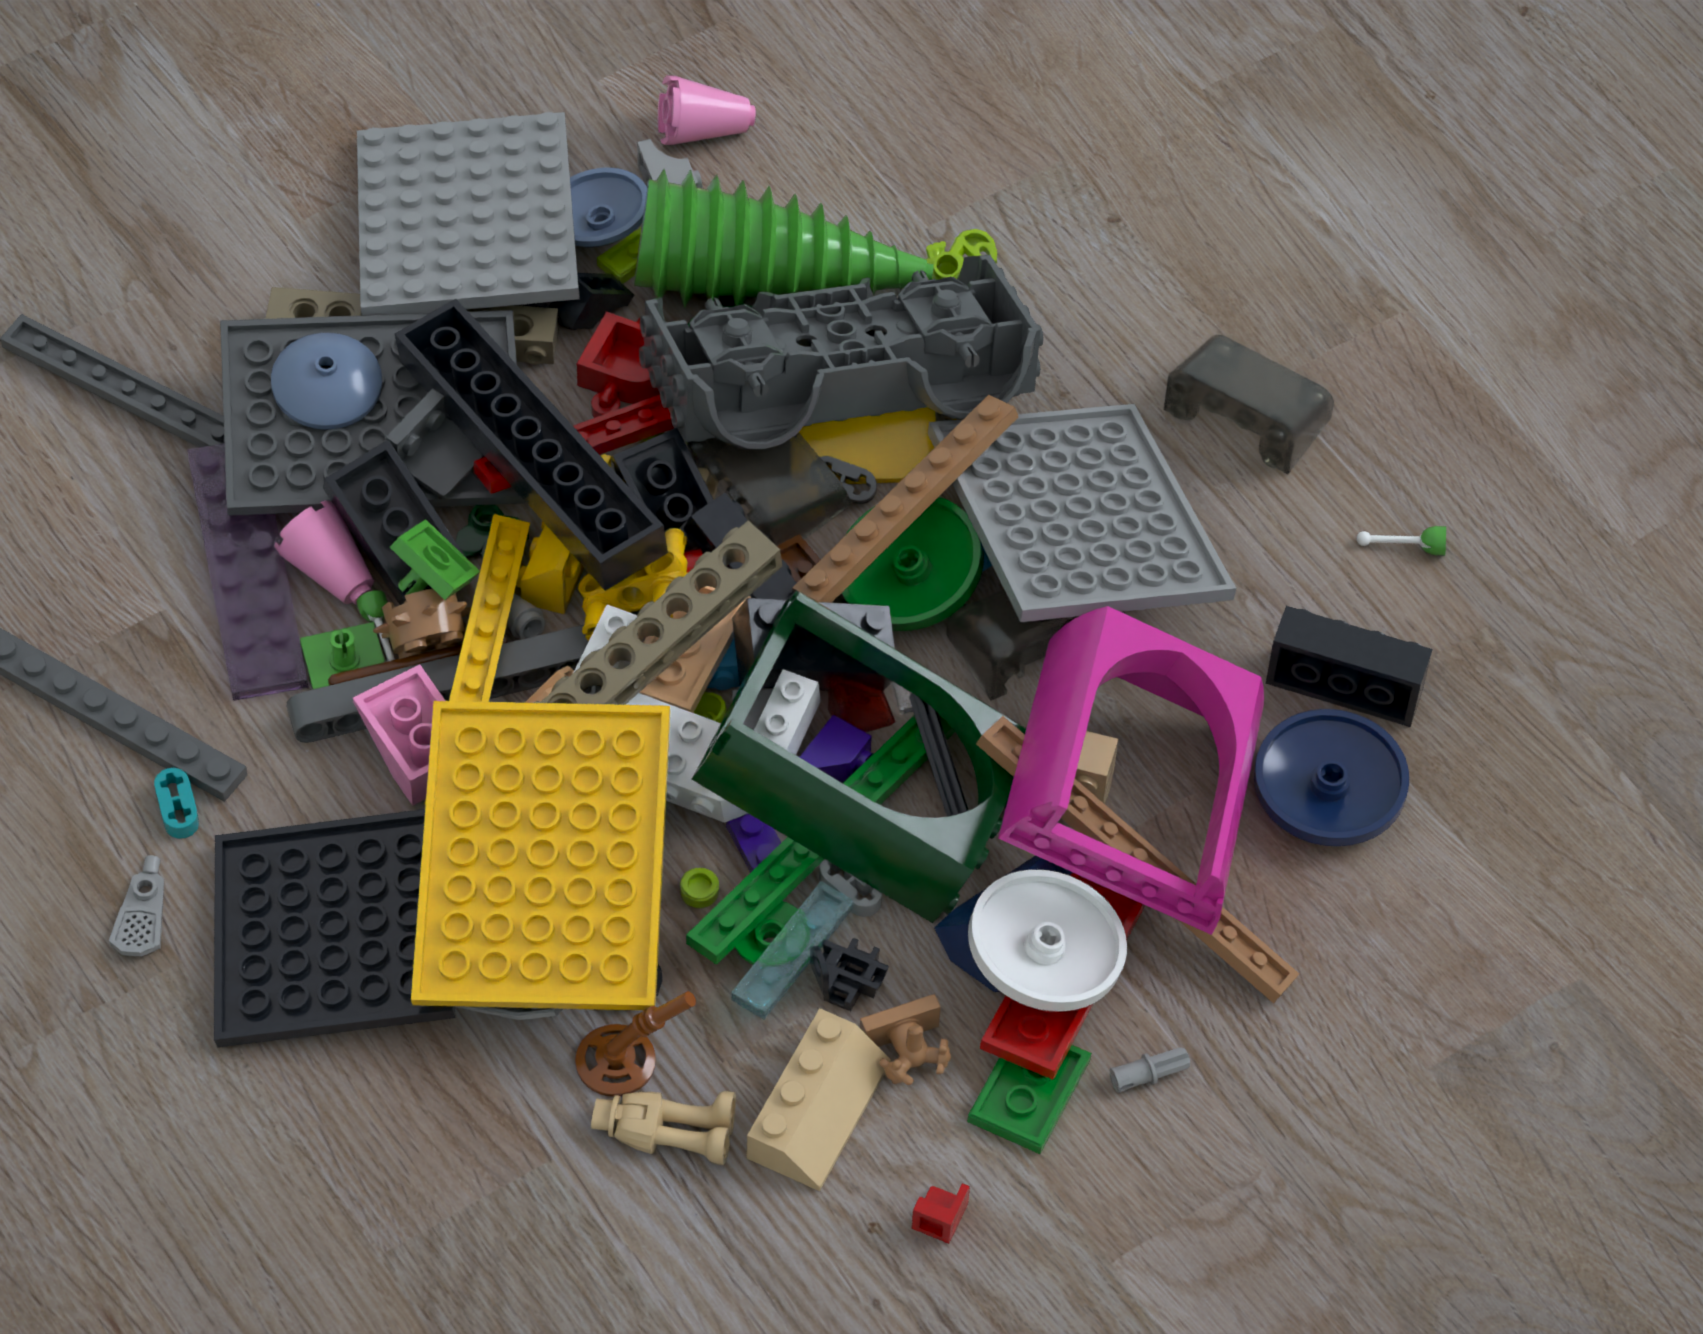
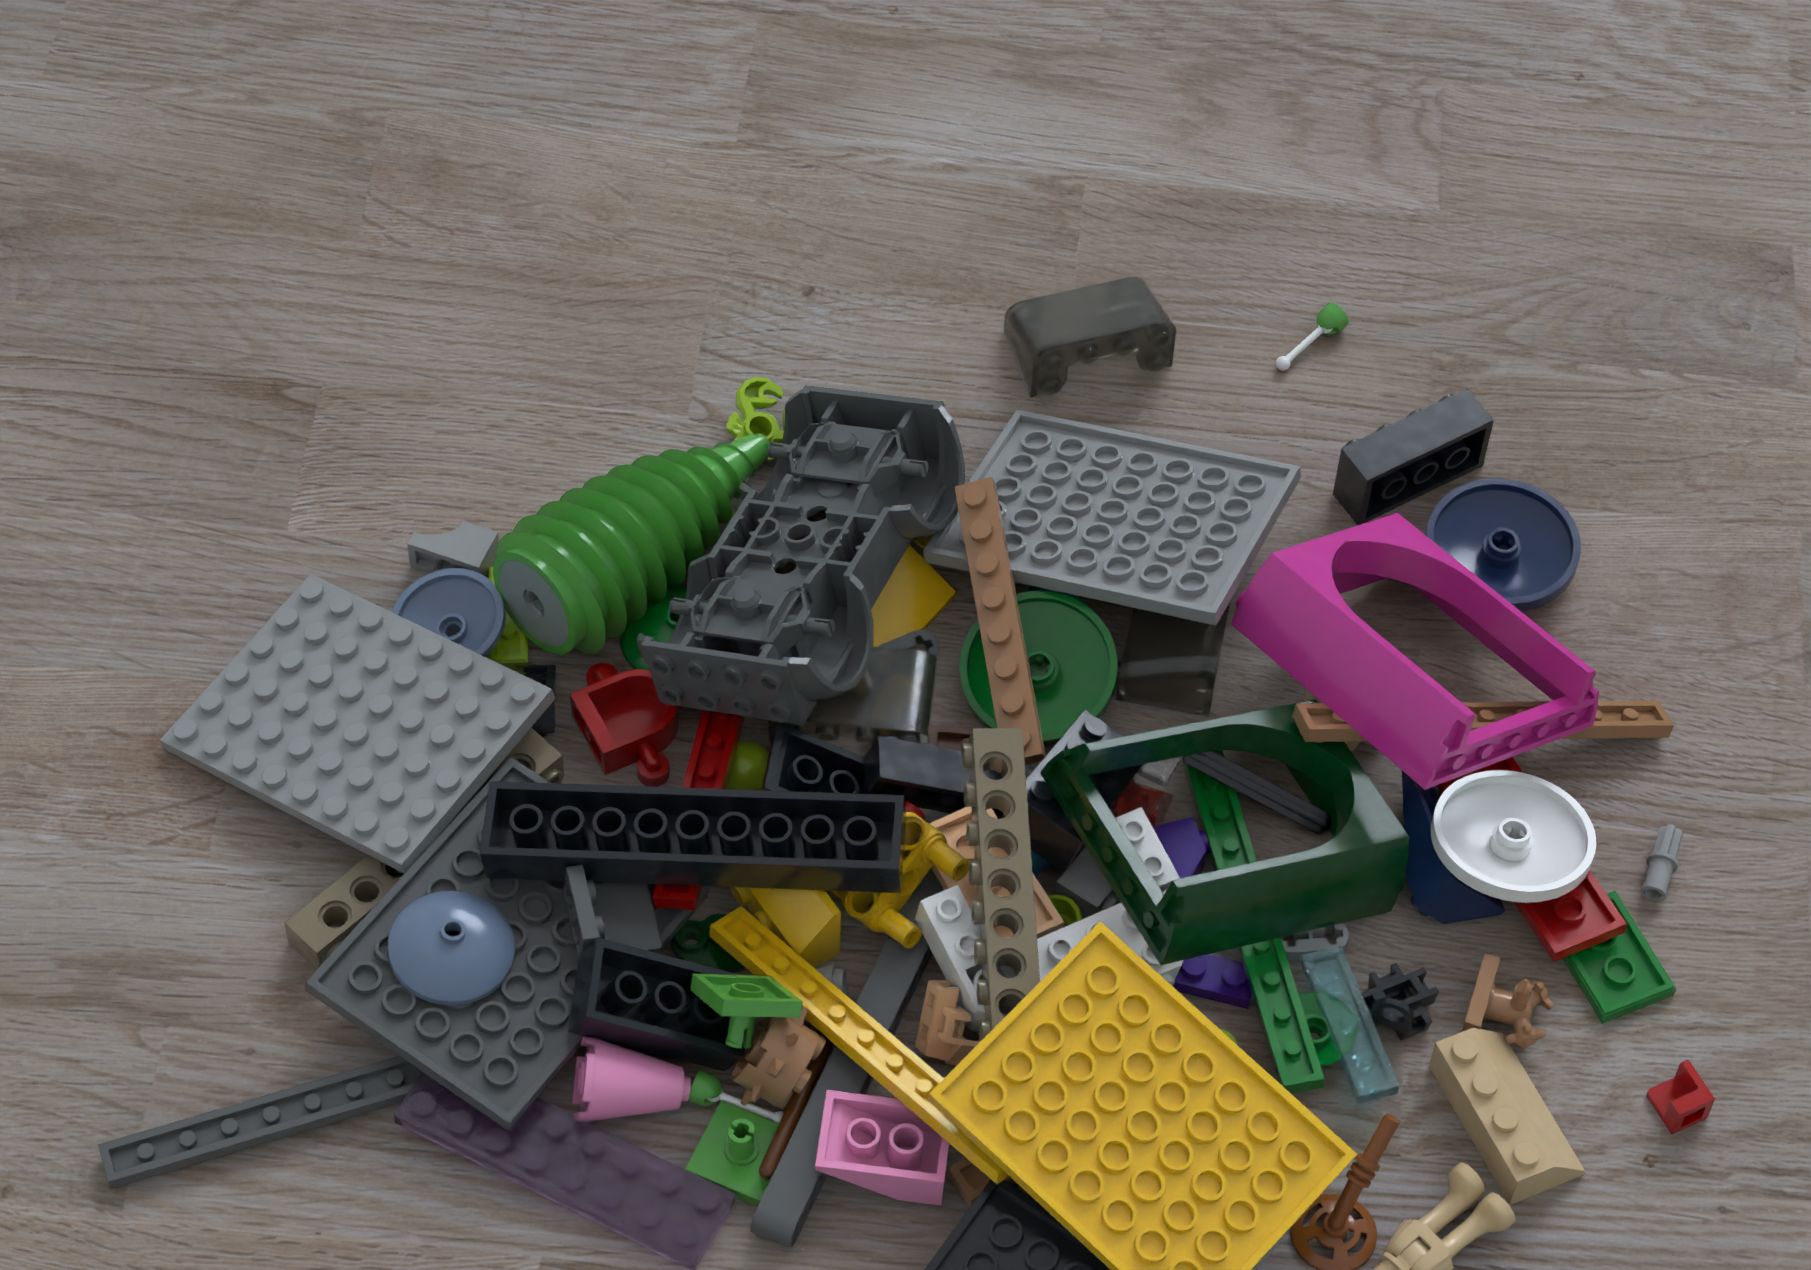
camera: 50 degrees left, 0 degrees up
(700, 112) = (414, 481): bright pink cone -> none

